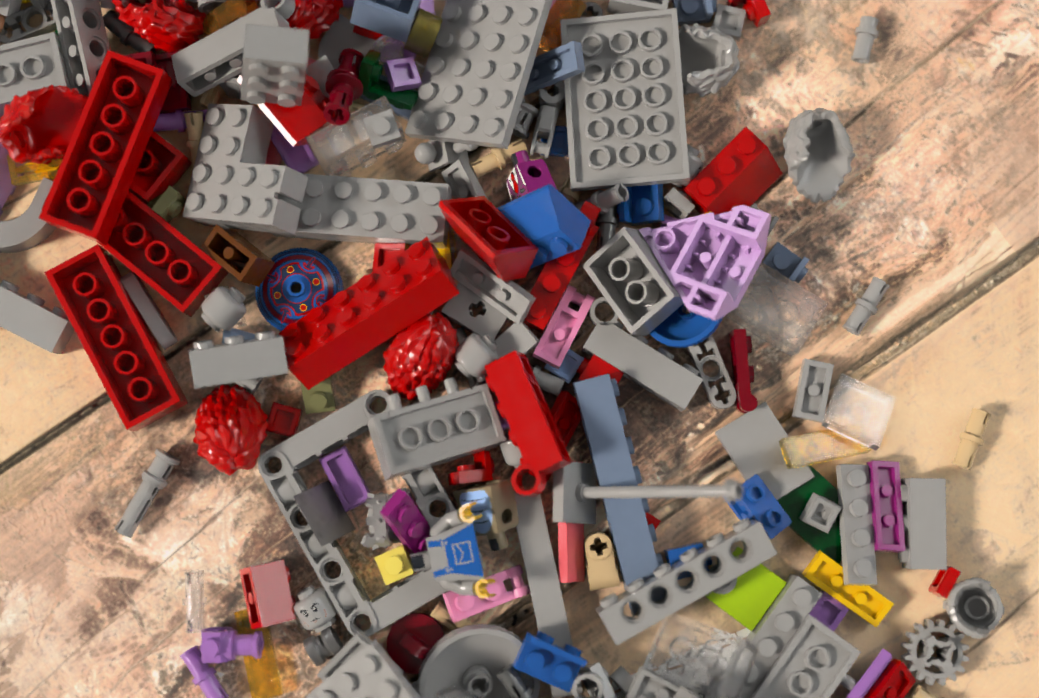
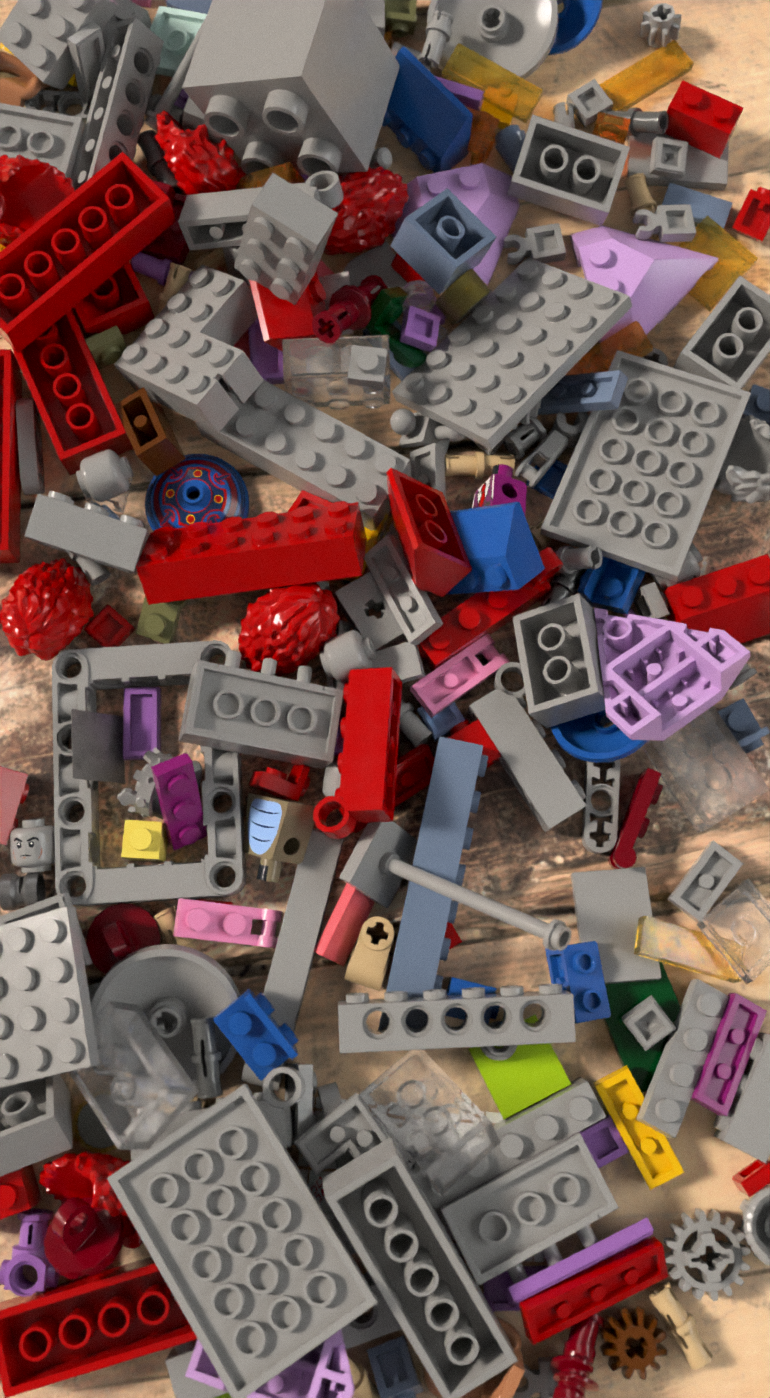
camera: 30 degrees right, 5 degrees down
(455, 554) = (213, 859): torso -> none

